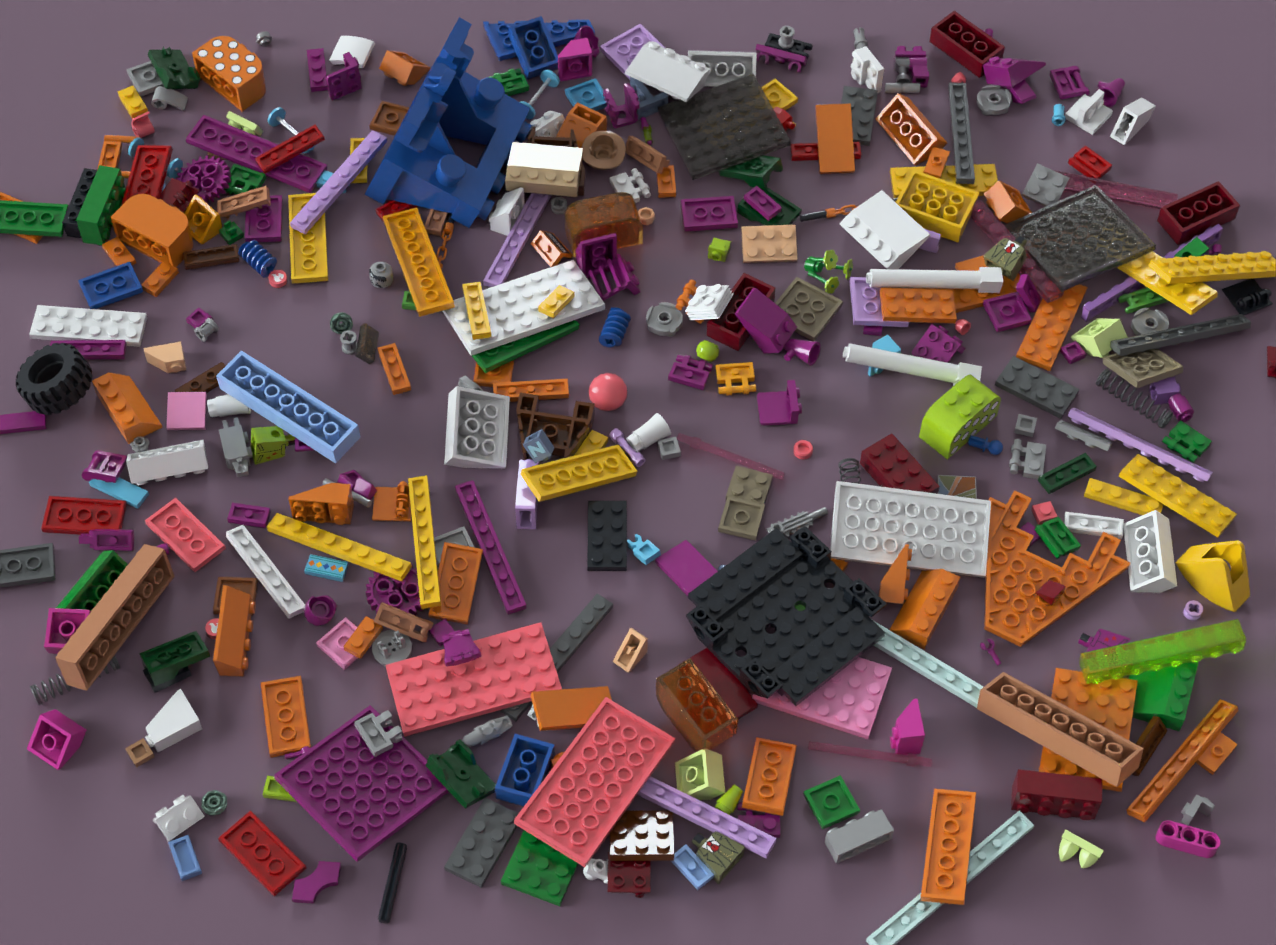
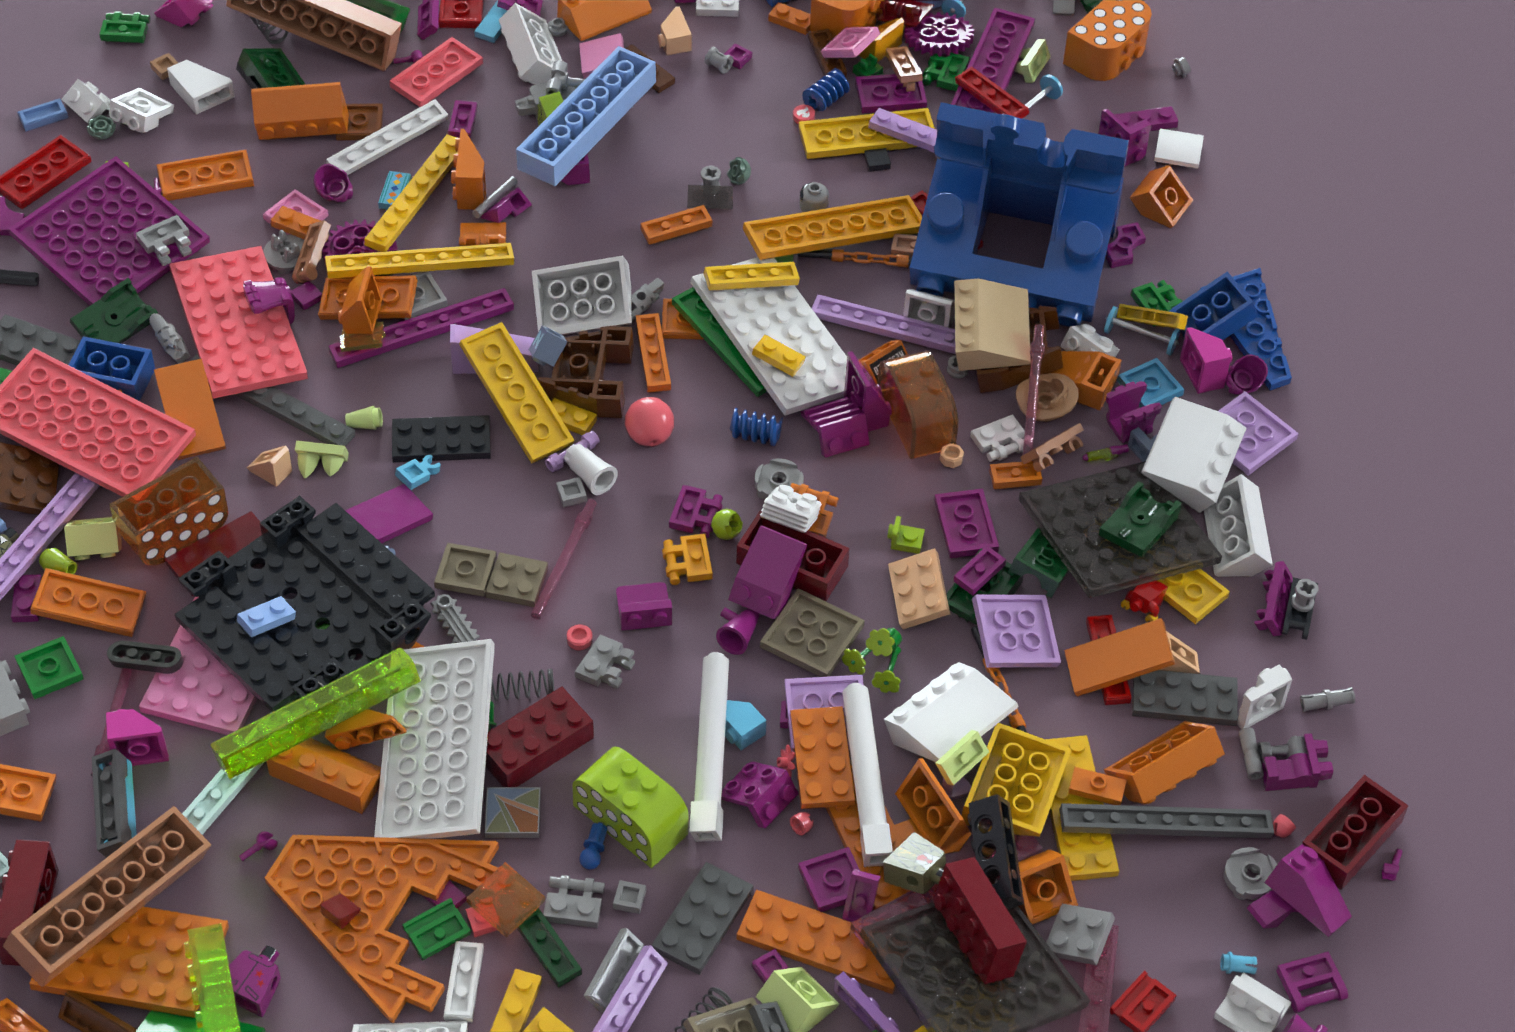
camera: 85 degrees right, 5 degrees down
(82, 794) = (124, 27): none -> green plate
(199, 769) = (139, 110): none -> white plate
(214, 232) = (850, 42): none -> bright pink tile
(230, 430) = (560, 79): none -> light grey bar
(336, 235) = (877, 159): none -> black tile
(479, 576) = (361, 304): none -> orange slope
(502, 584) = (353, 342): none -> clear yellow piece
(533, 80) = (1152, 316): none -> yellow piece
(575, 141) = (1037, 350): none -> clear pink bar
(586, 584) = (365, 418): none -> yellowish green cone
(620, 622) = (311, 452): none -> yellowish green tile
(716, 108) = (1139, 521): none -> dark green piece
(803, 635) = (266, 616): none -> light blue plate
(810, 191) = (1016, 631): none -> lavender plate
(825, 437) = (599, 660): none -> light grey plate
(832, 719) = (161, 658): none -> pearl dark grey plate
(897, 597) = (315, 713): none -> clear neon green brick
(916, 329) = (785, 760): none -> coral plant
(932, 227) = (962, 757): none -> yellowish green plate
(958, 247) = (932, 809): none -> orange slope
(966, 742) = (113, 801): none -> dark grey piece
(1030, 210) = (996, 812): none -> black brick
(1037, 491) = (505, 899): none -> clear orange plate
(1057, 222) = (979, 920): none -> dark red brick

